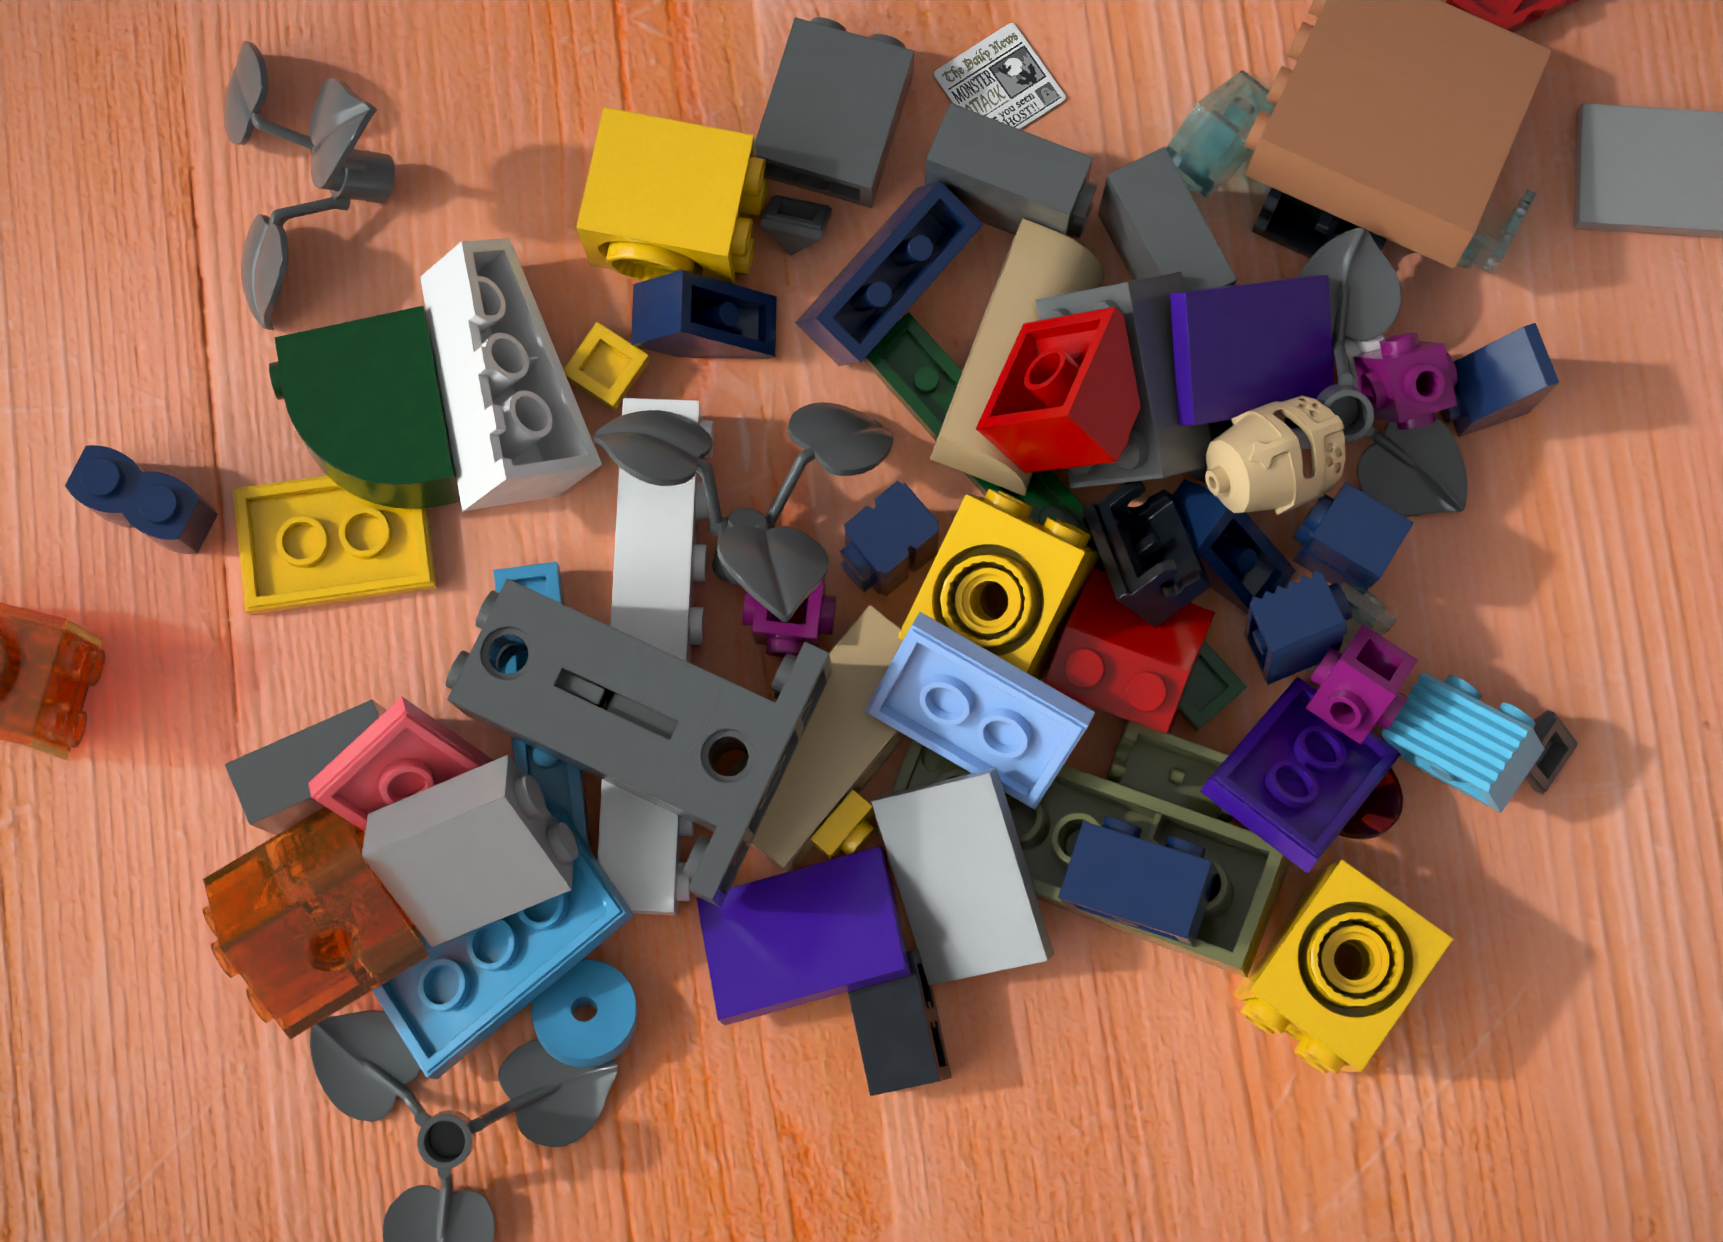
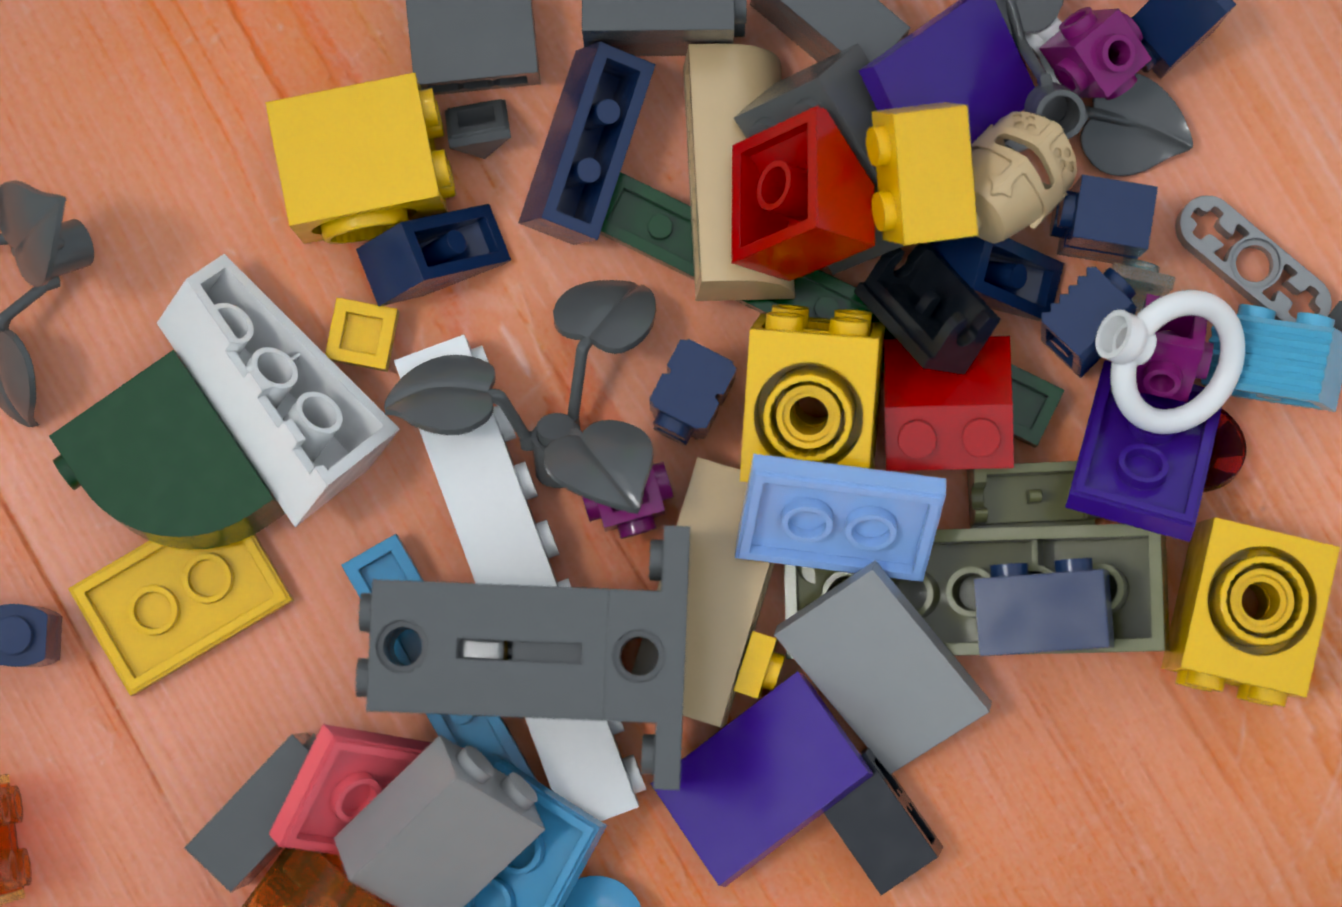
camera: 25 degrees left, 5 degrees up
(1191, 411) = (922, 173): none -> yellow brick
(1326, 657) = (1131, 341): none -> white piece
(1487, 619) = (1227, 223): none -> light grey beam

